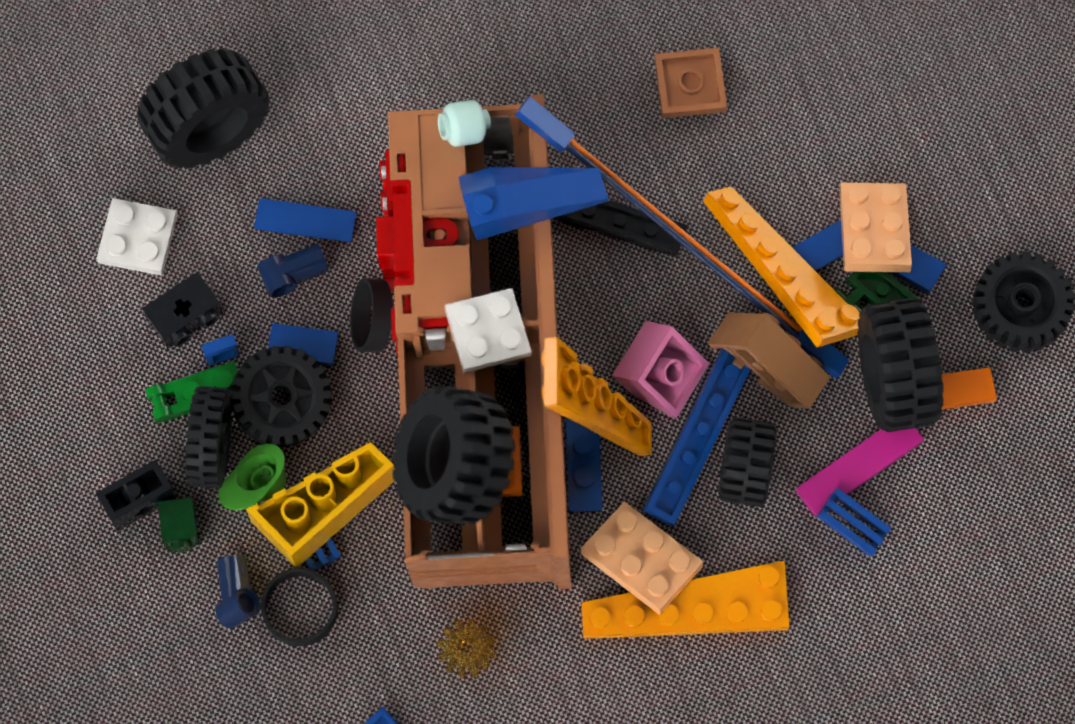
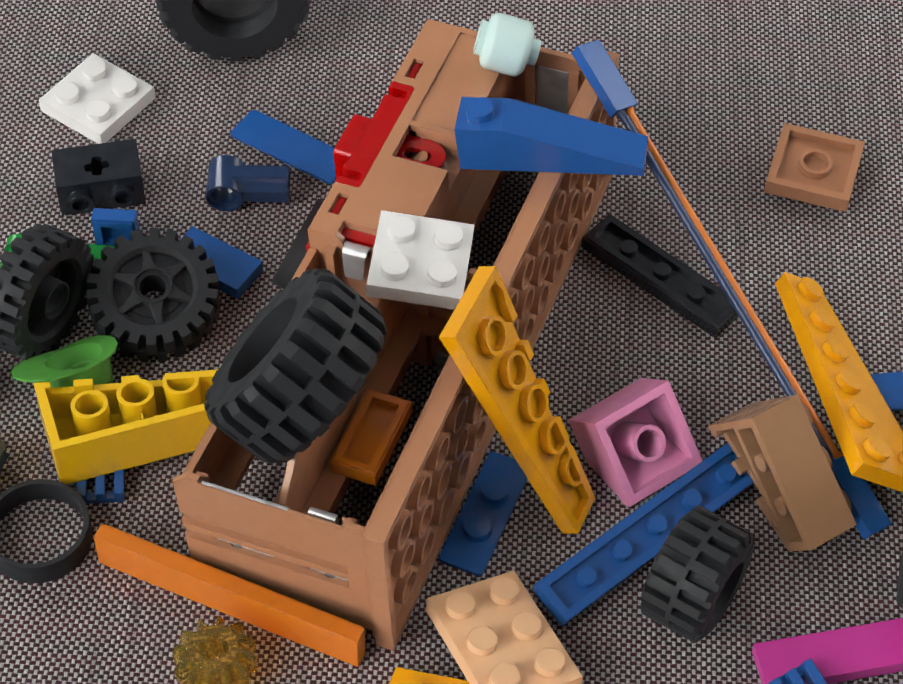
camera: 25 degrees right, 20 degrees down
(451, 599) = (231, 595): none -> orange tile

